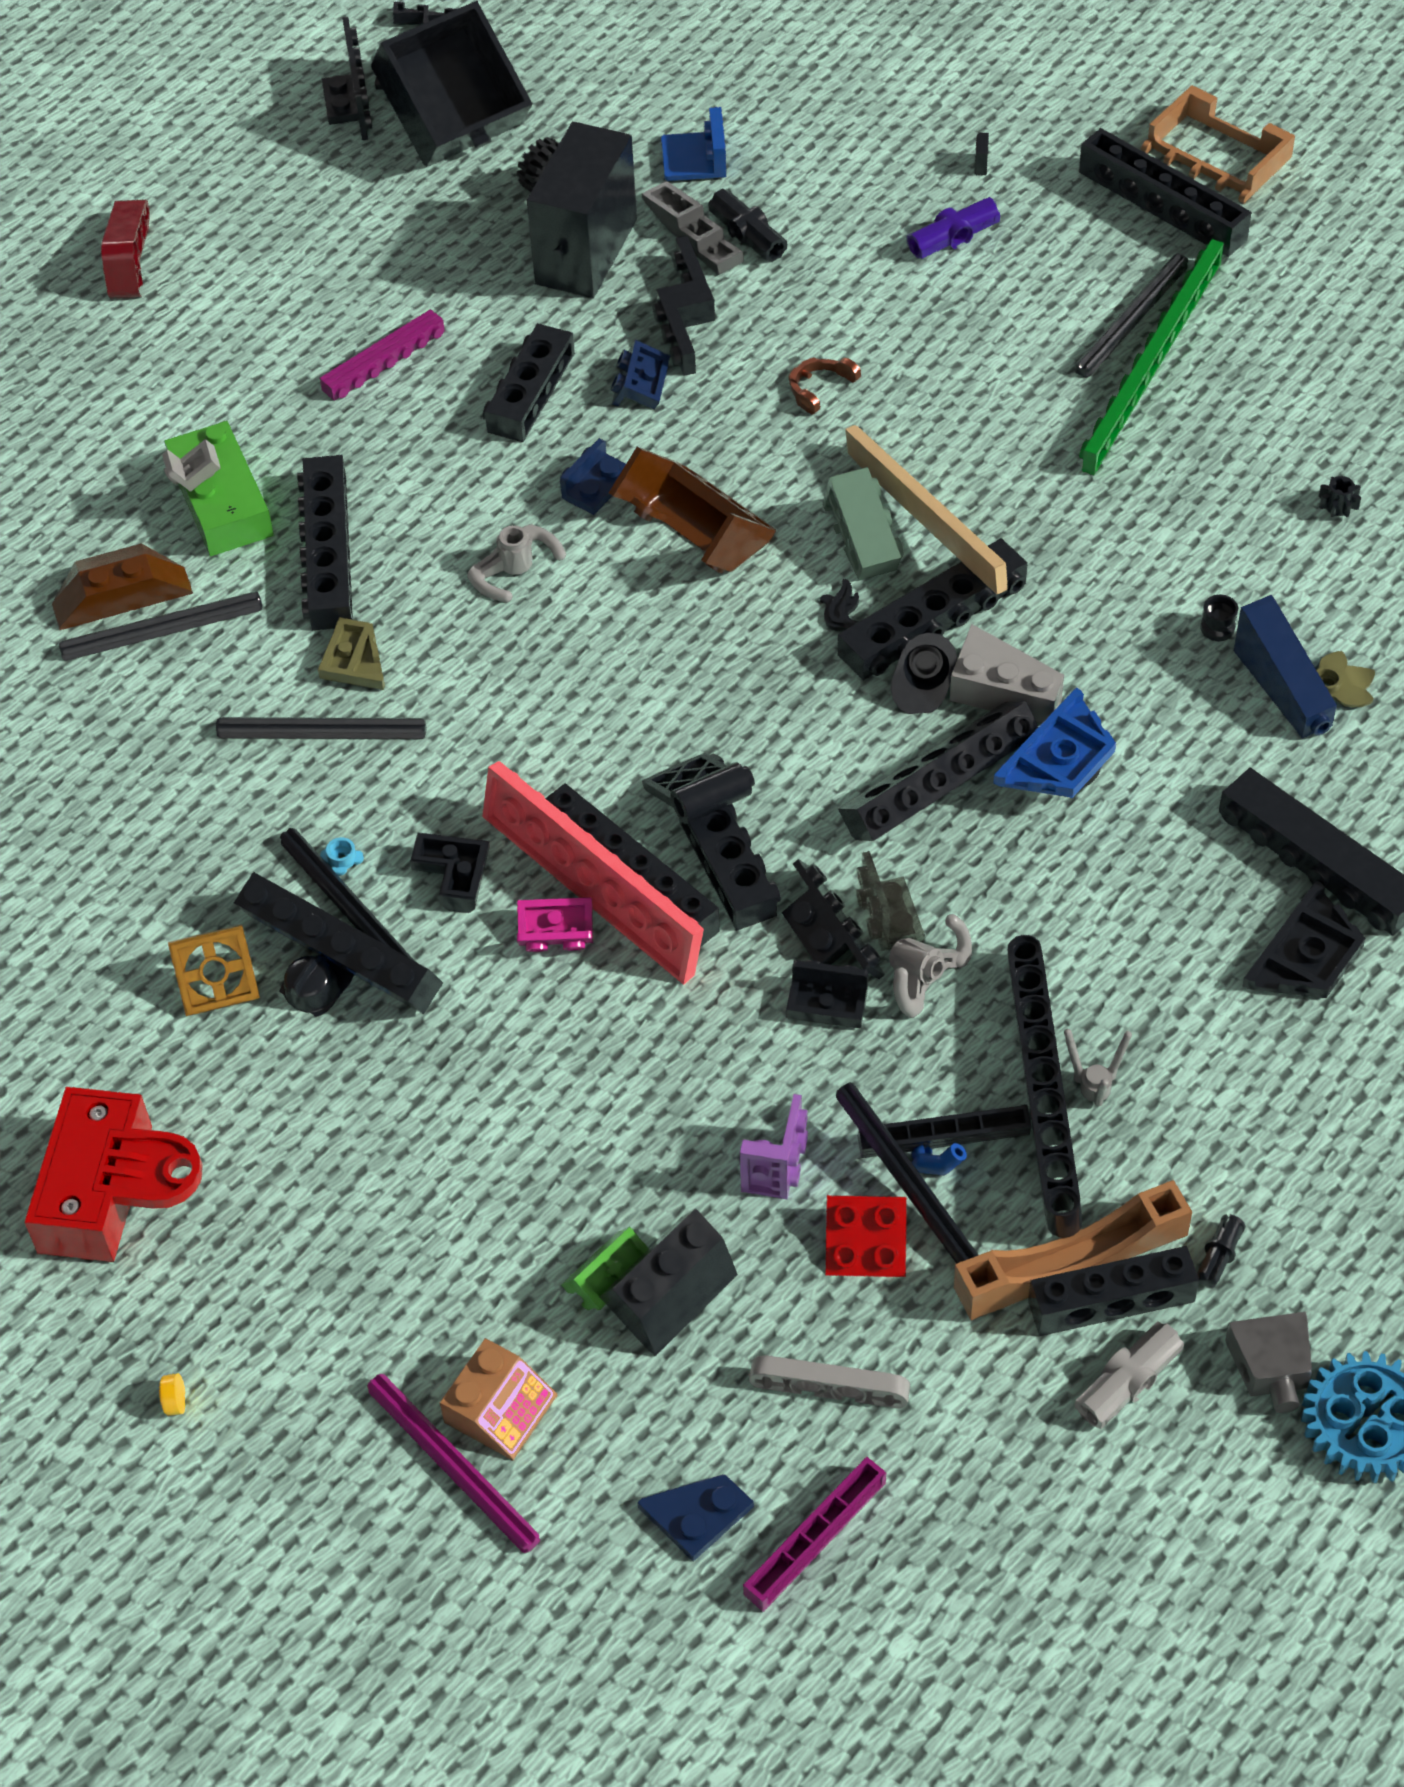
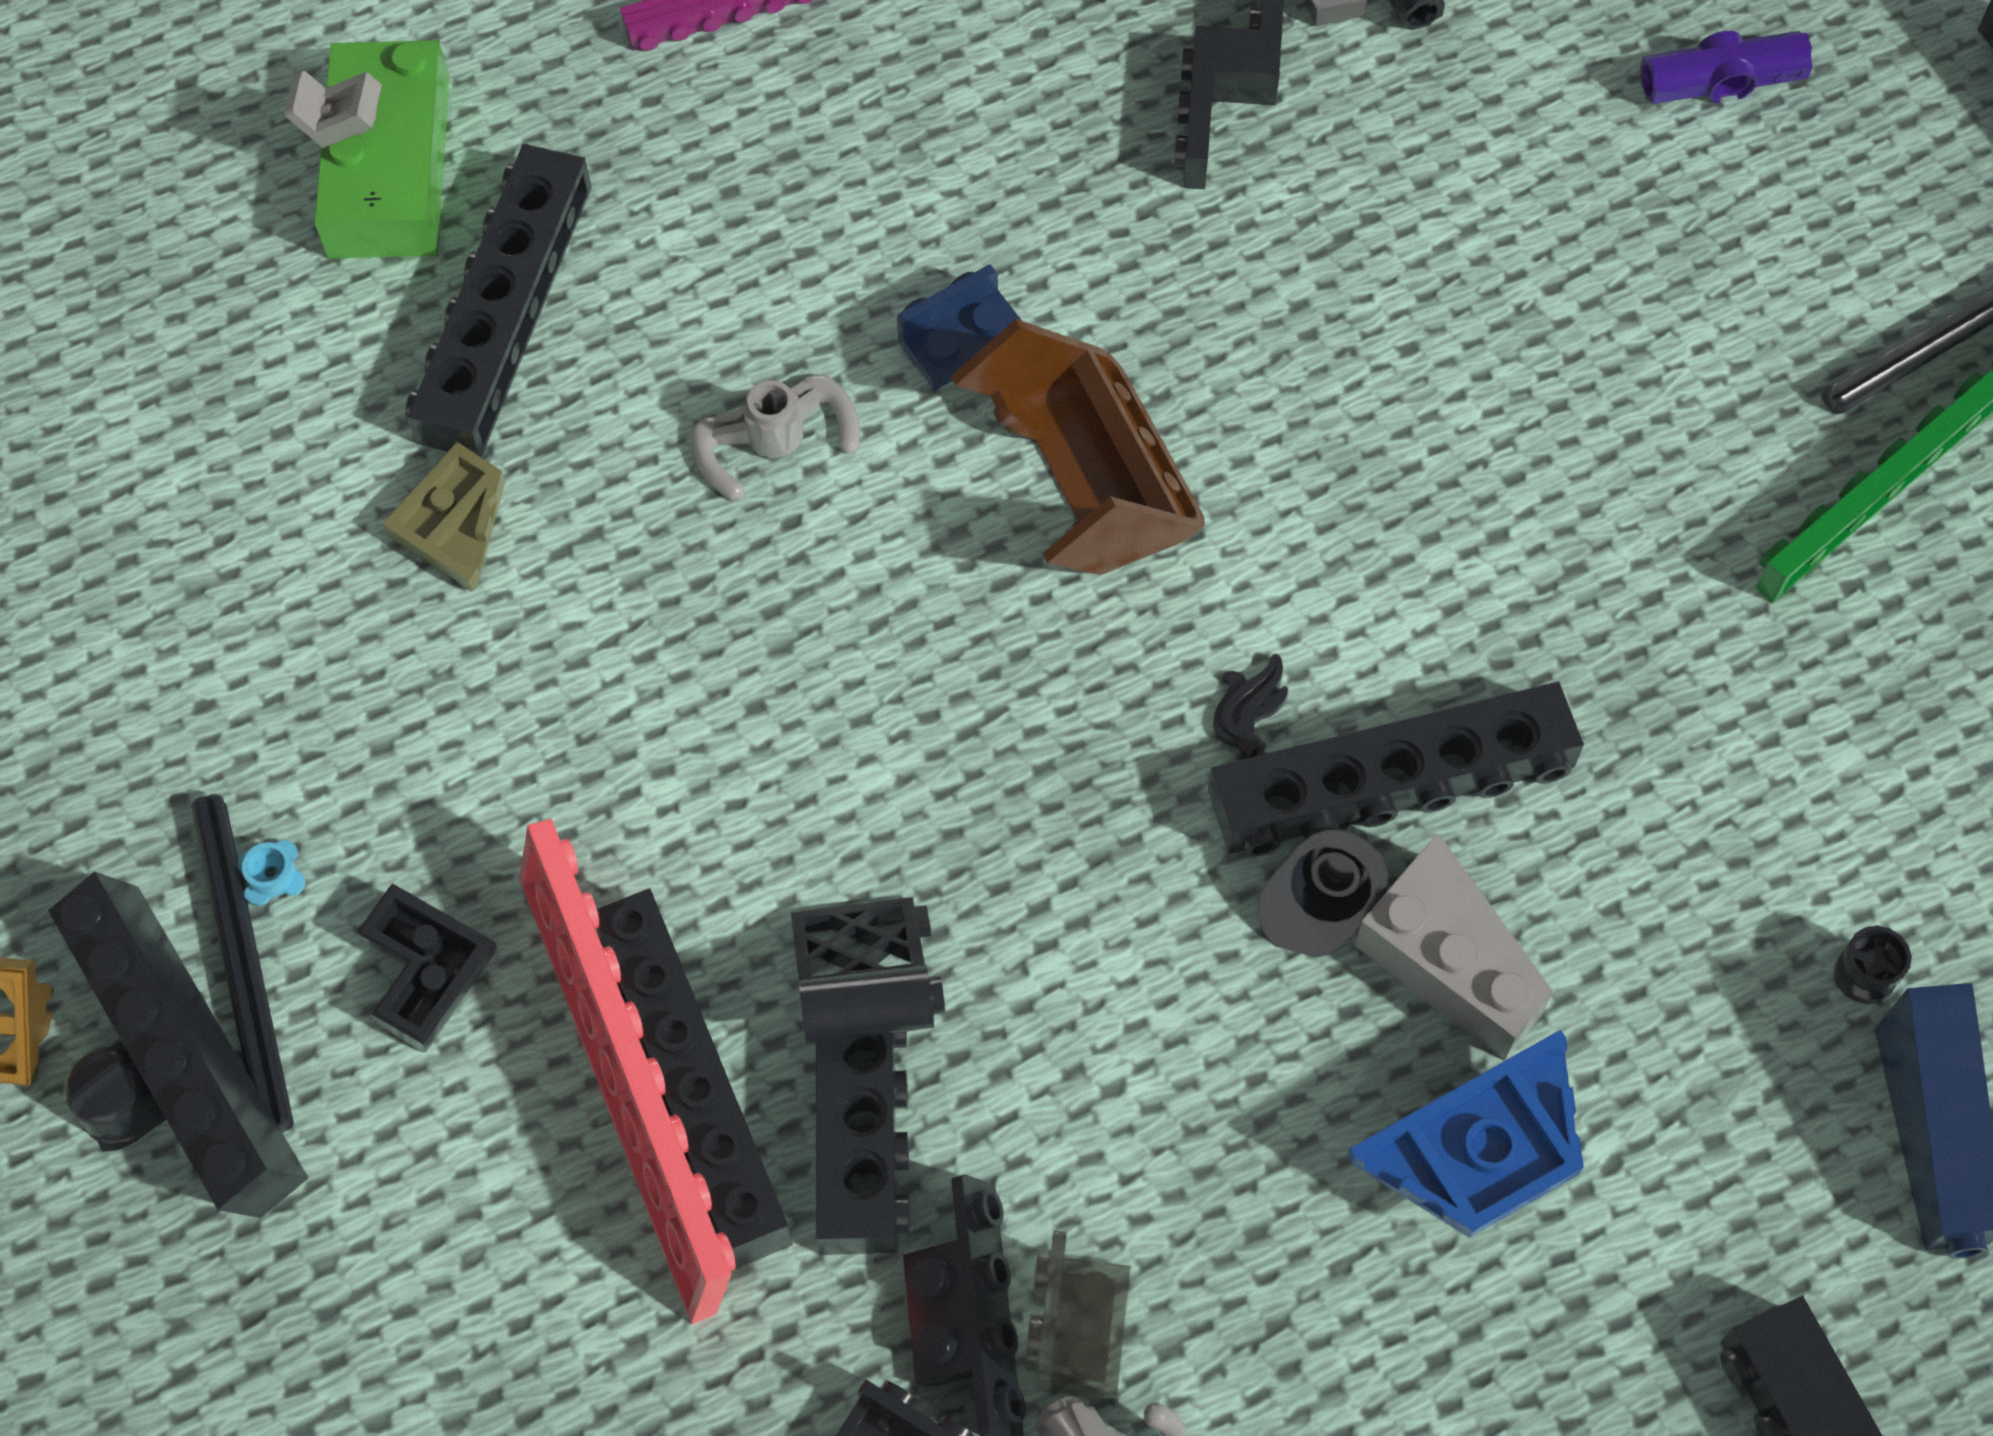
camera: 20 degrees right, 10 degrees up
(118, 584) = (169, 262): reddish brown wedge -> none
(160, 626) = (197, 356): black axle -> none
(321, 728) = (348, 627): black axle -> none
(529, 382) = (933, 122): black brick -> none
(555, 923) = (531, 1136): dark pink bracket -> none
(640, 375) = (1113, 168): dark blue bracket -> none
(805, 398) = (1440, 261): copper piece -> none
(863, 523) = (1345, 571): sand green wedge -> none
(927, 510) = (1457, 590): tan tile -> none
(938, 771) = (1272, 1091): black brick -> none

